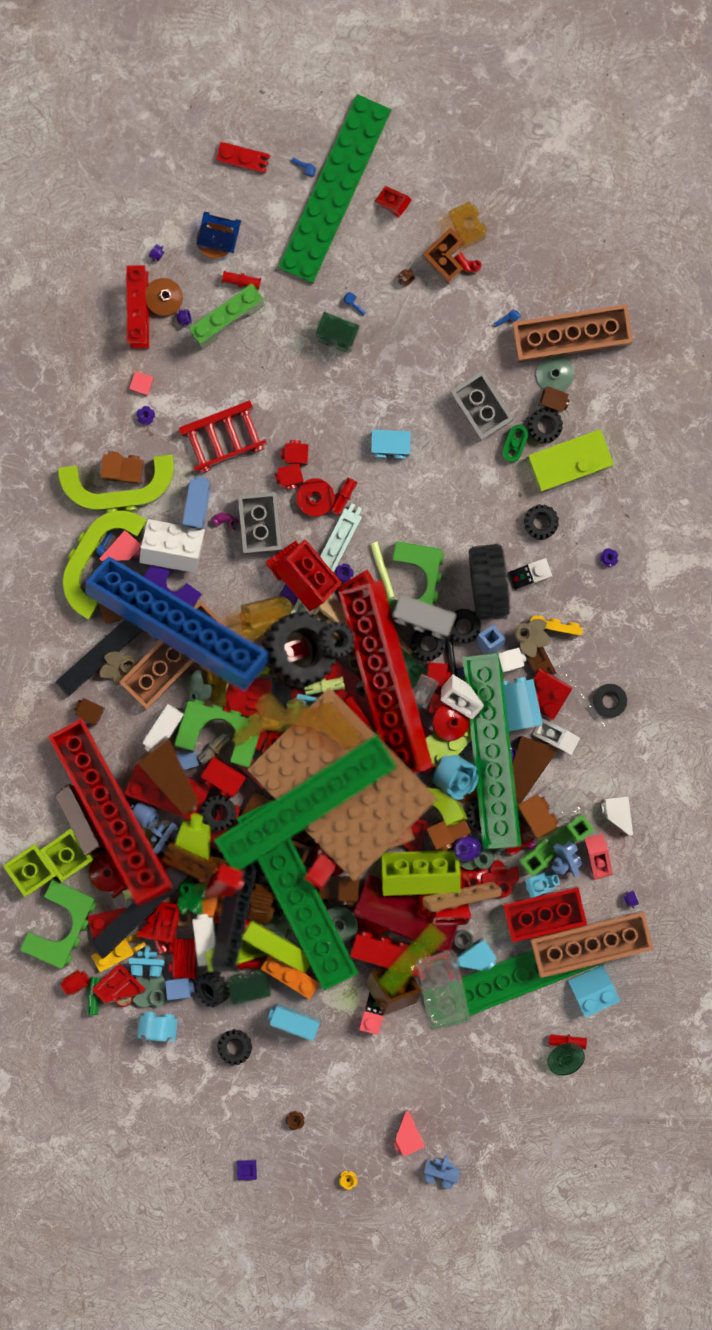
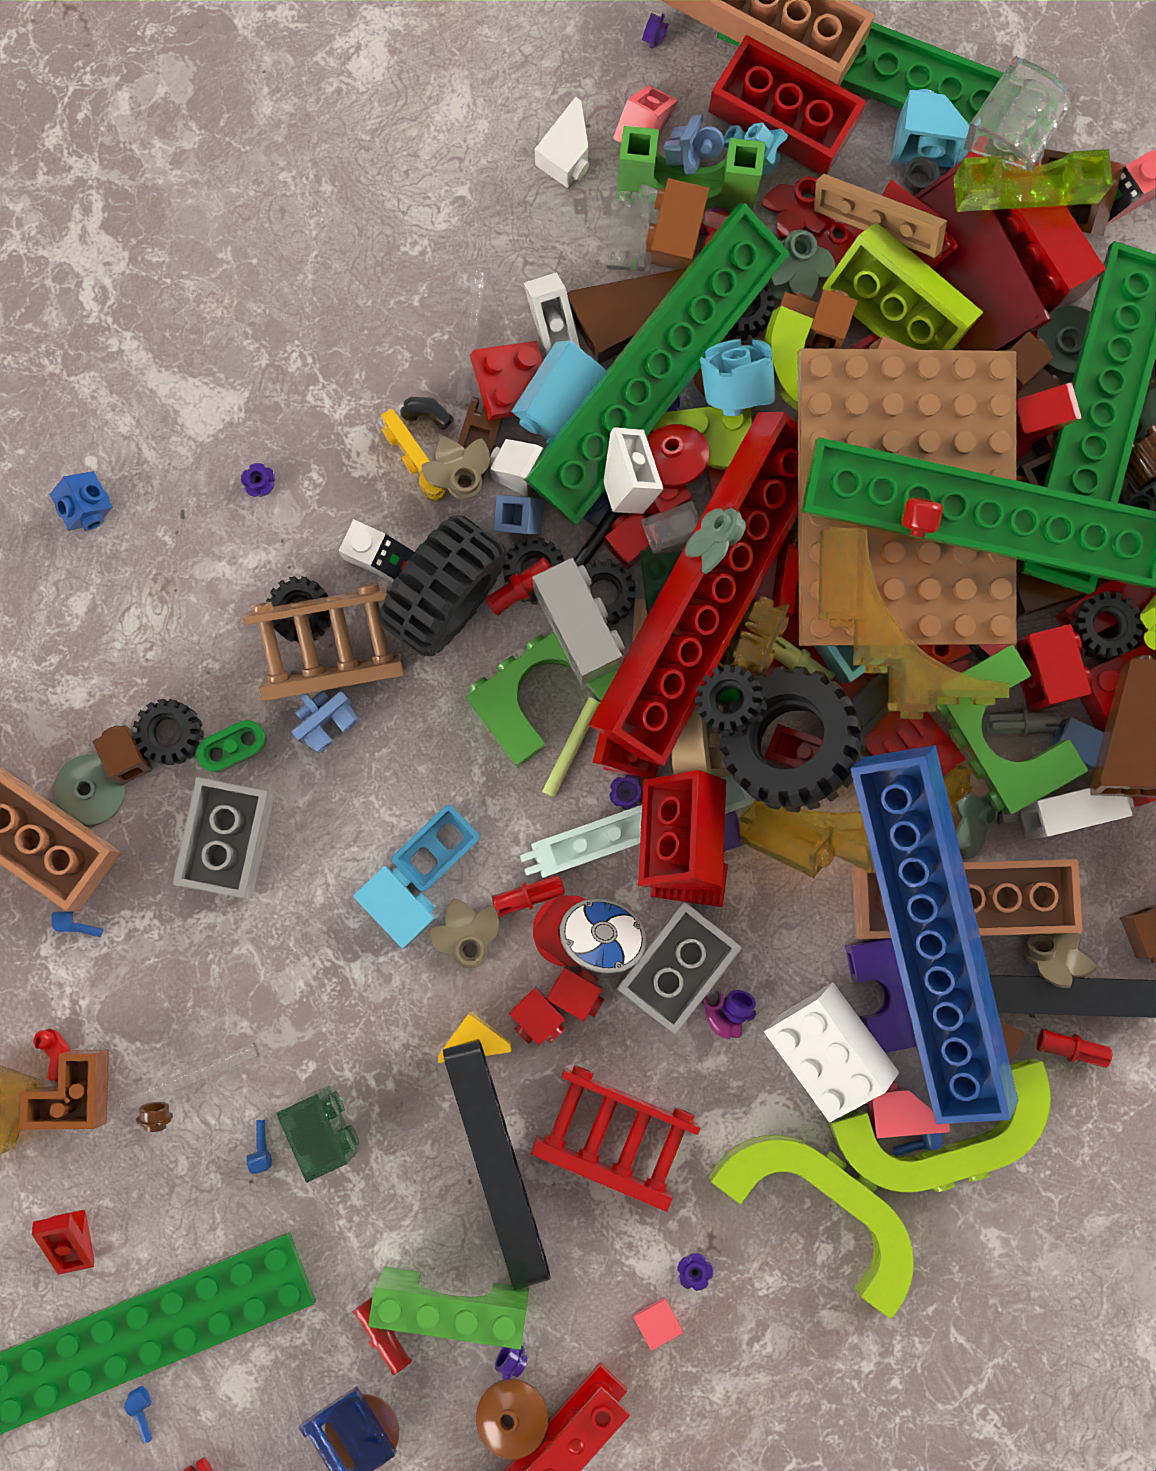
camera: 140 degrees left, 5 degrees down
(78, 638) = (1074, 1048): none -> red axle
(122, 469) = (807, 1238): dark orange brick -> none
(197, 502) = (741, 1079): medium blue window -> none
(222, 531) = (739, 1006): none -> dark purple plate
(259, 384) = (496, 1164): none -> black beam
(300, 507) = (603, 936): none -> shield
(312, 421) = (475, 1028): none -> yellow slope
(329, 774) = (922, 516): none -> red piece
(342, 670) = (770, 623): none -> clear yellow hinge
(356, 460) = (465, 927): none -> dark tan plate
(390, 480) = (427, 838): none -> dark azure piece
(401, 695) = (717, 532): none -> sand green plate
(461, 611) = (518, 587): none -> red pin
(467, 848) = (811, 272): dark purple head -> none
(489, 478) = (312, 730): none -> medium blue hips
(508, 501) = (313, 675): none -> medium nougat fence
(570, 460) = (180, 651): lime brick -> none
(571, 651) = (428, 407): none -> black arm
(621, 700) = (434, 278): black tyre -> none
(668, 481) = (81, 501): none -> blue brick

